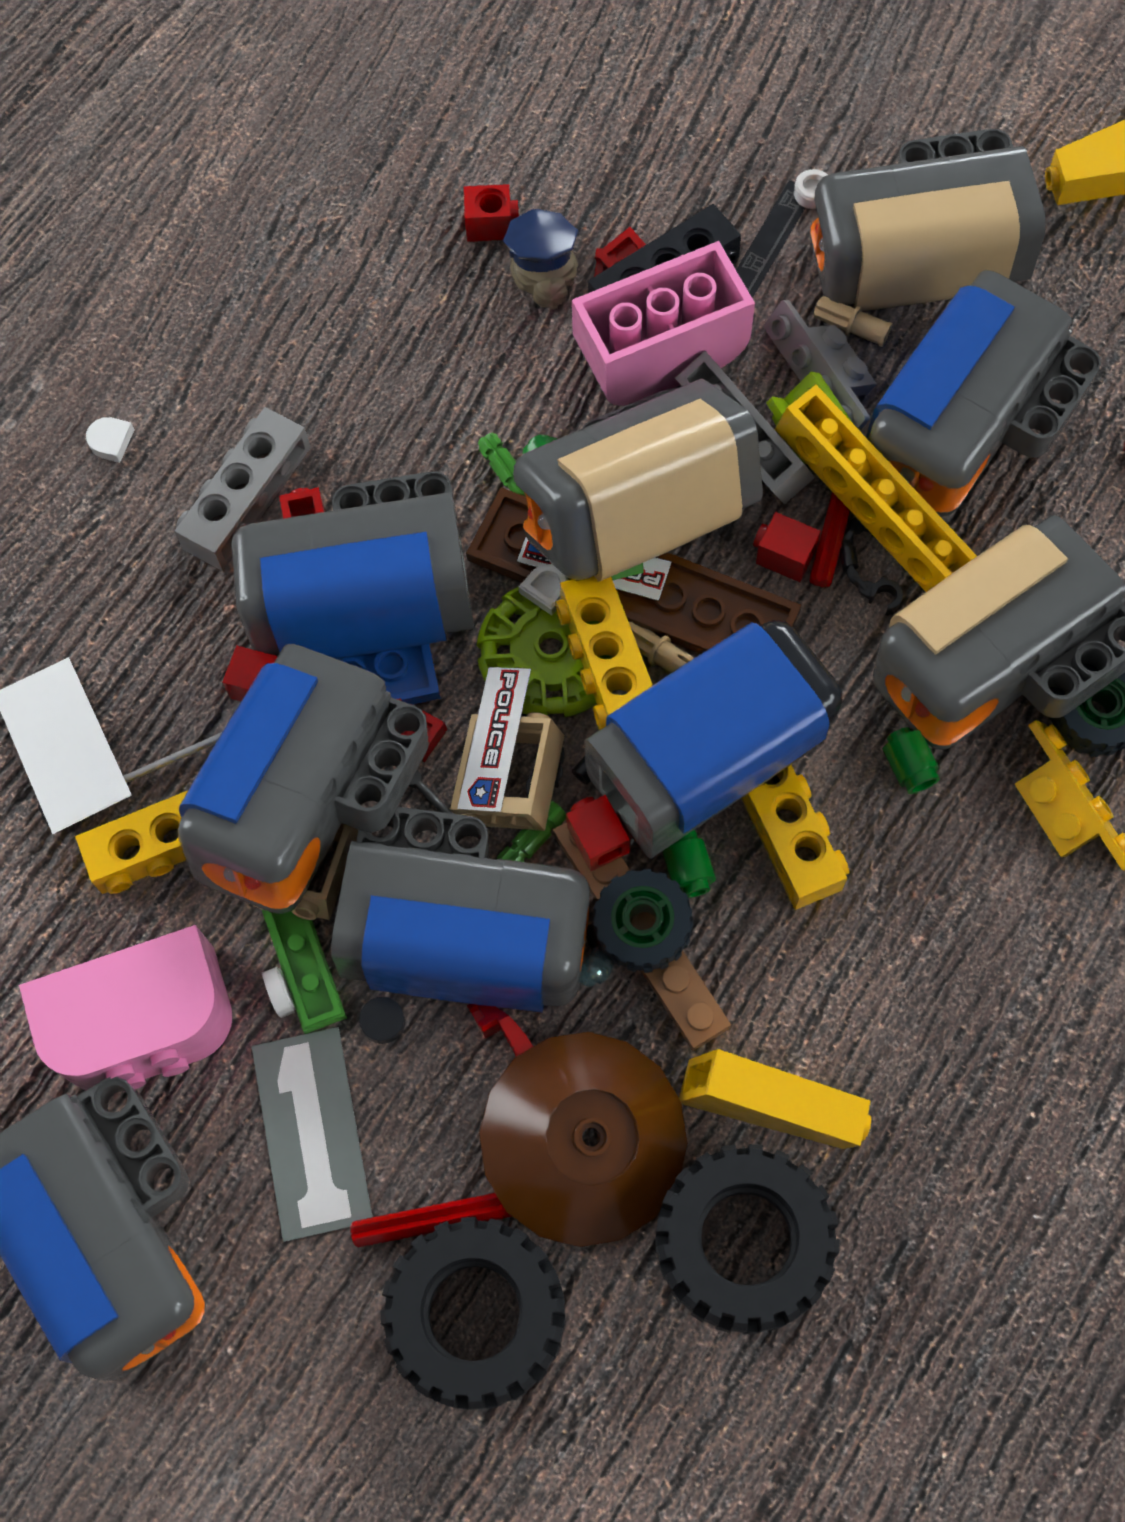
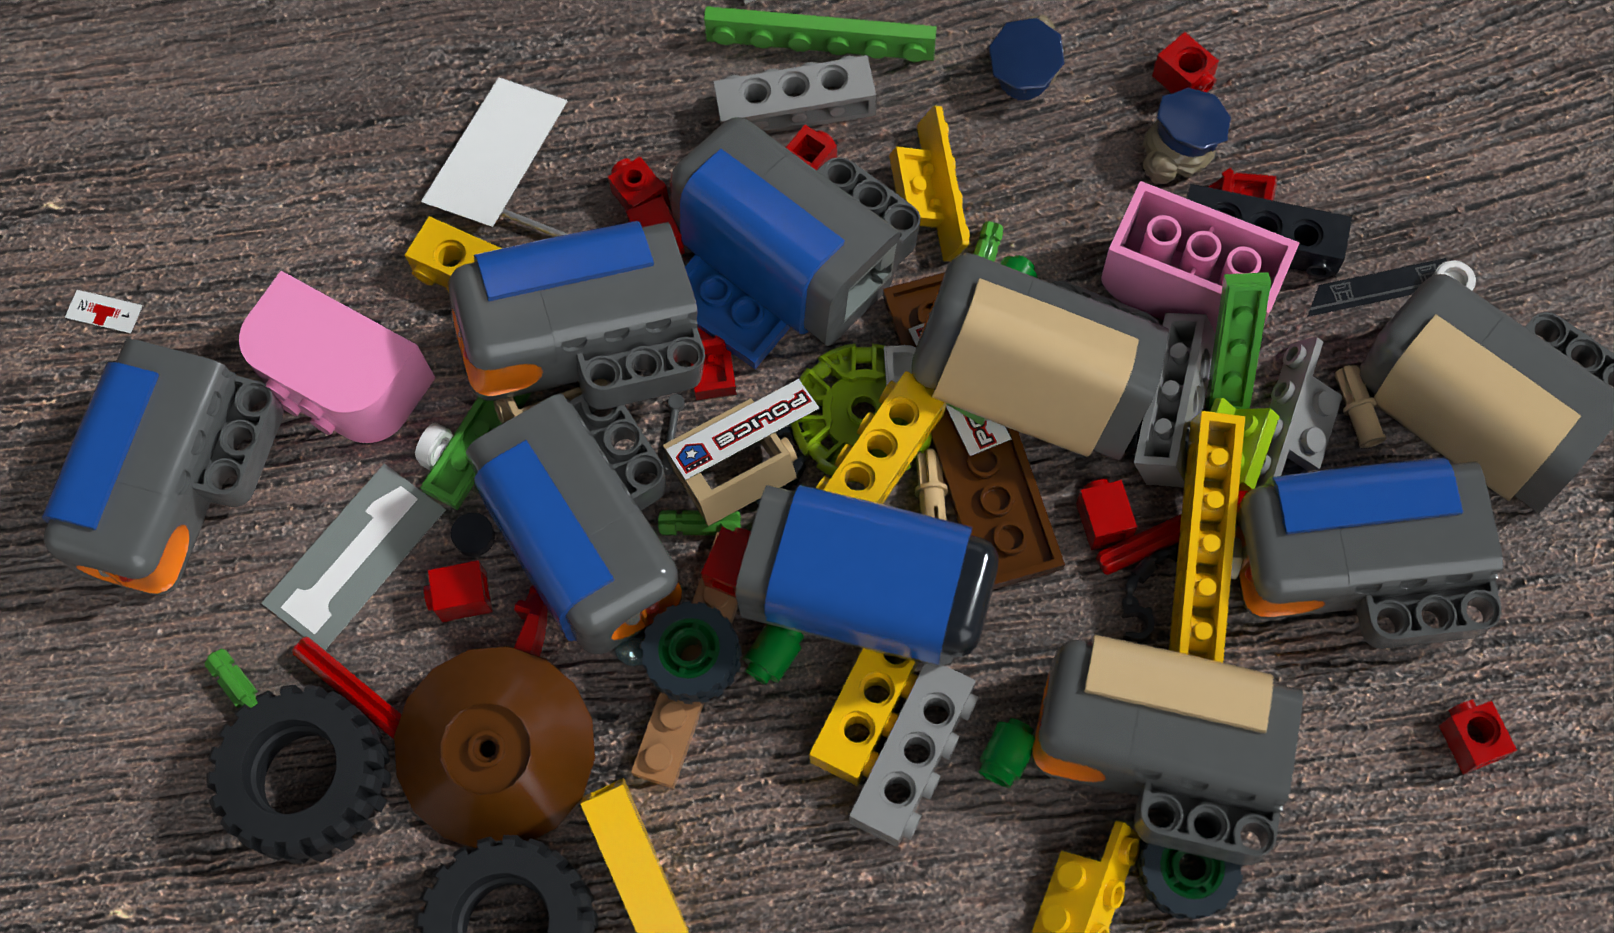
camera: 50 degrees right, 0 degrees up
(205, 428) = (820, 33): none -> bright green plate
(206, 672) = (635, 183): none -> red brick
(339, 1315) = (231, 678): none -> bright green axle
(376, 303) = (1027, 56): none -> dark blue piece
(408, 448) = (930, 183): none -> yellow bracket
(424, 1066) = (458, 591): none -> red brick
(749, 342) = (1238, 338): none -> bright green tile
(873, 888) = (934, 687): none -> light grey brick

